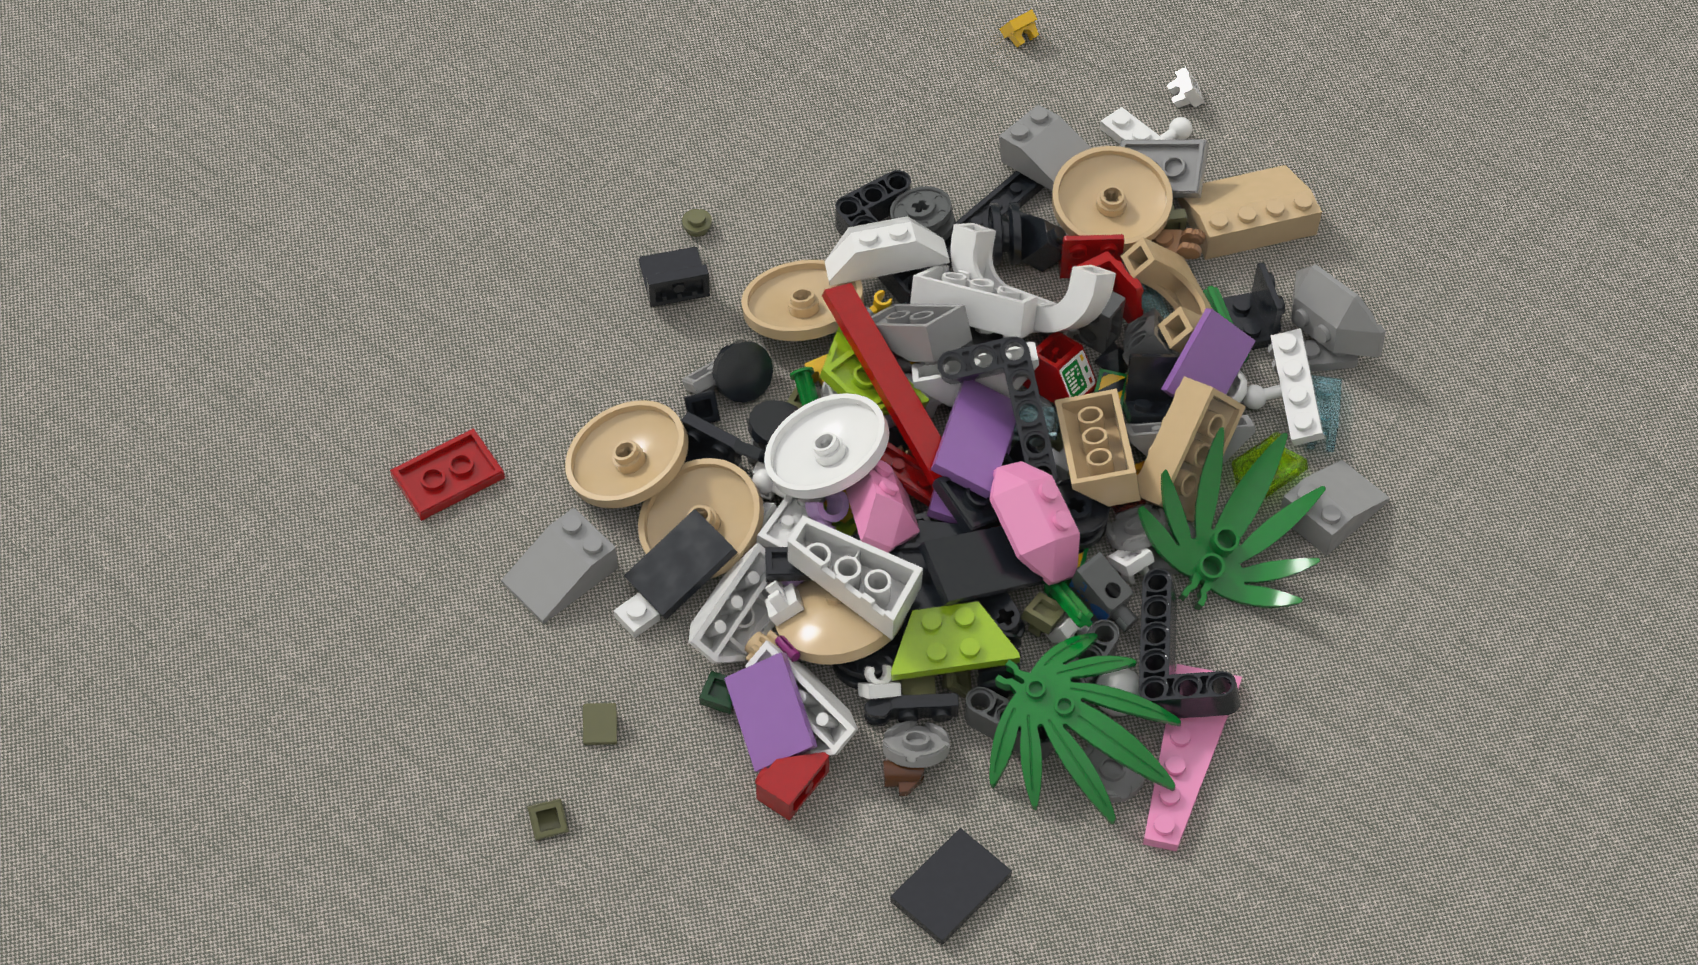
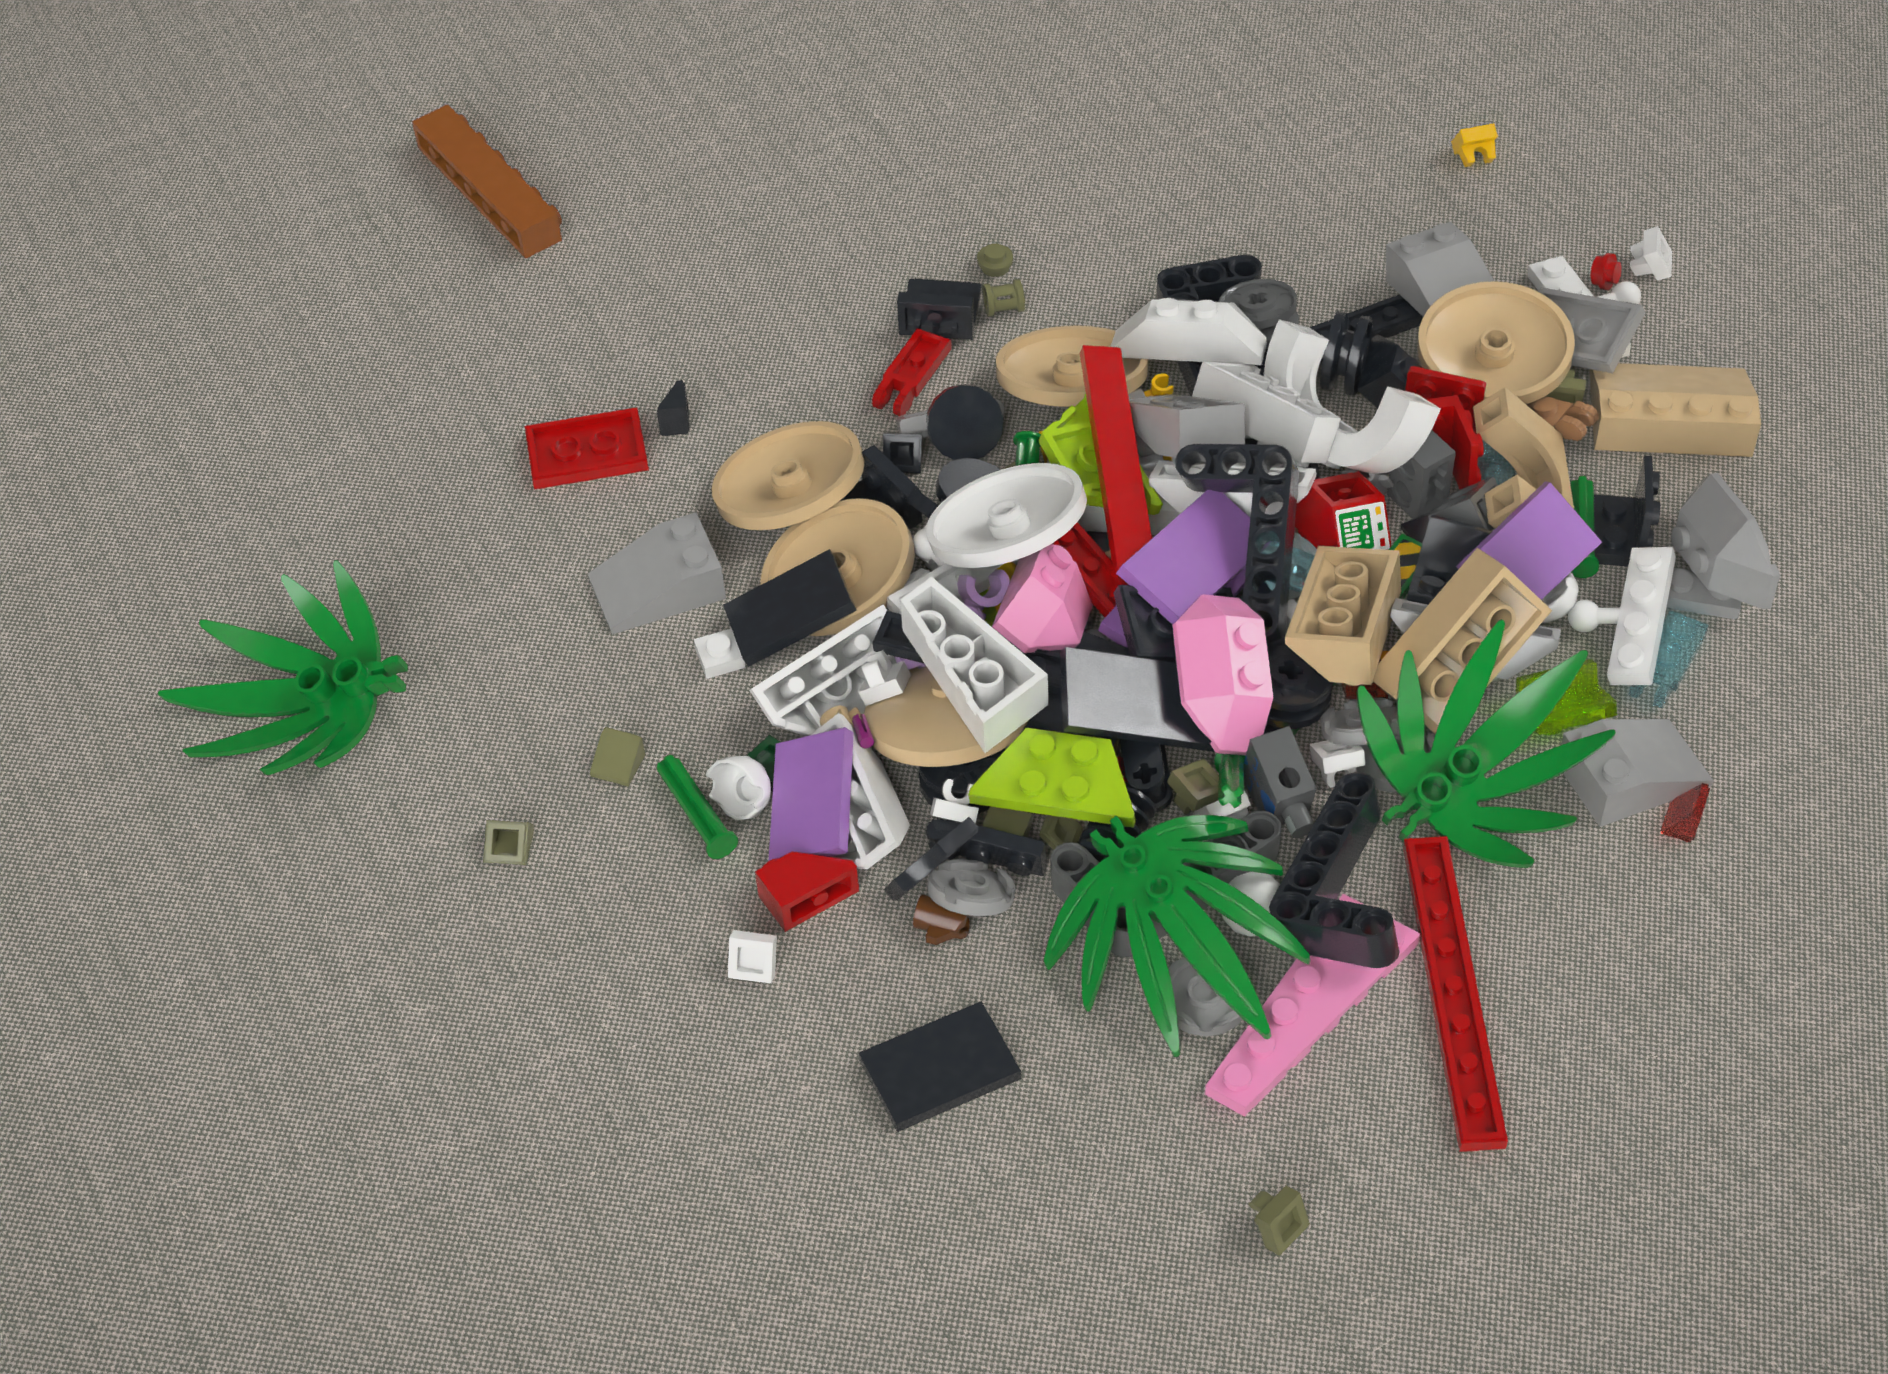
camera: 25 degrees right, 5 degrees down
(251, 261) = (488, 181): none -> dark orange brick
(352, 737) = (324, 692): none -> green plant
(508, 424) = (674, 411): none -> black slope
(676, 334) = (911, 370): none -> red hinge
(679, 744) = (717, 838): none -> green axle
(709, 719) = (740, 786): none -> white hair
(720, 254) = (1014, 290): none -> olive bush
(780, 849) = (752, 956): none -> white tile
(880, 734) = (932, 859): none -> black tile
(1158, 111) = (1605, 271): none -> red plate
(1235, 918) = (1280, 1218): none -> olive tile
(1280, 713) = (1454, 995): none -> red tile
(1382, 528) = (1686, 813): none -> clear red slope

